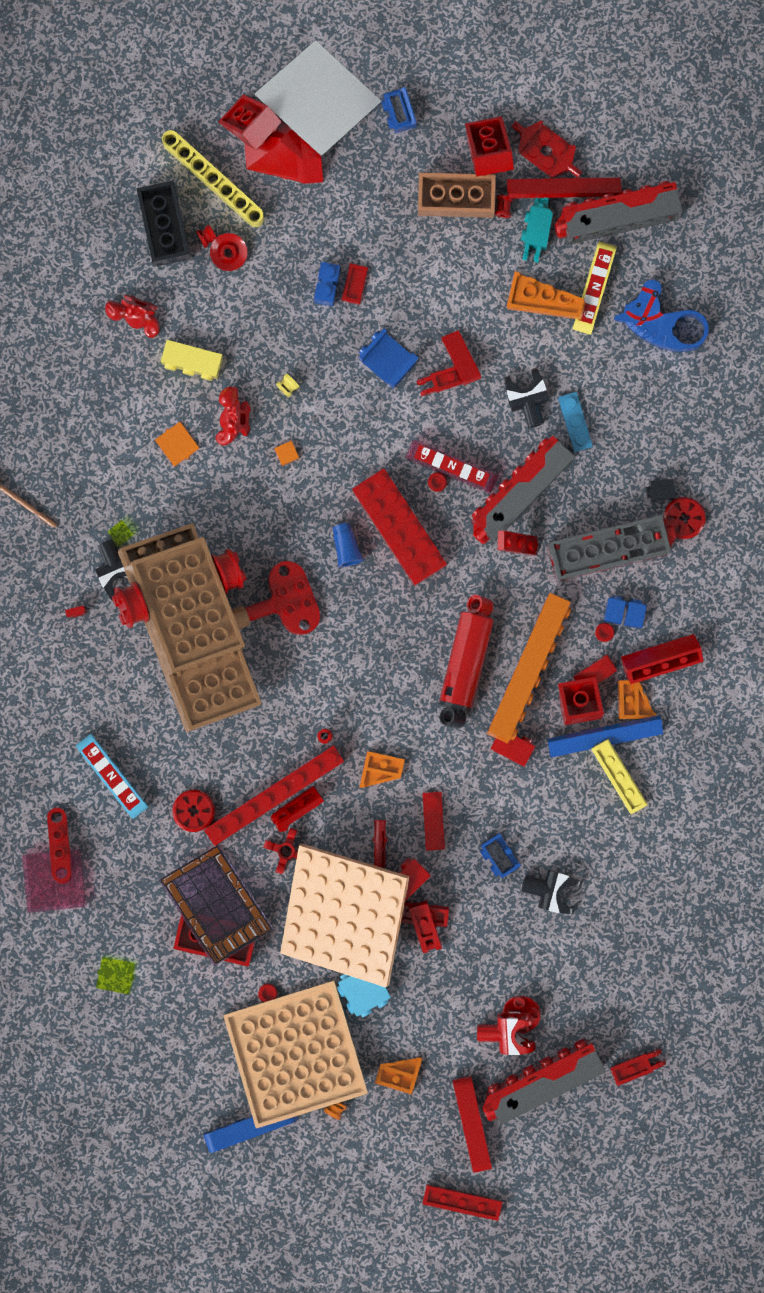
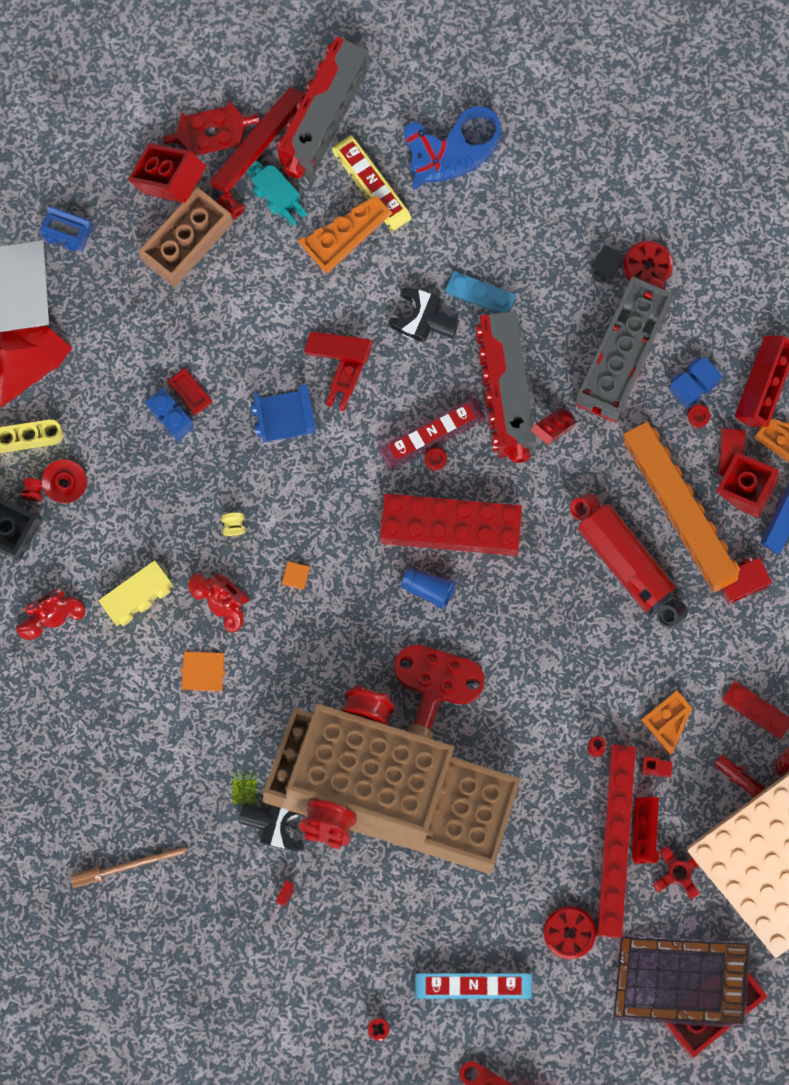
camera: 50 degrees left, 10 degrees down
(34, 733) = (379, 1037): none -> red bush
(343, 785) = (656, 767): none -> red piece

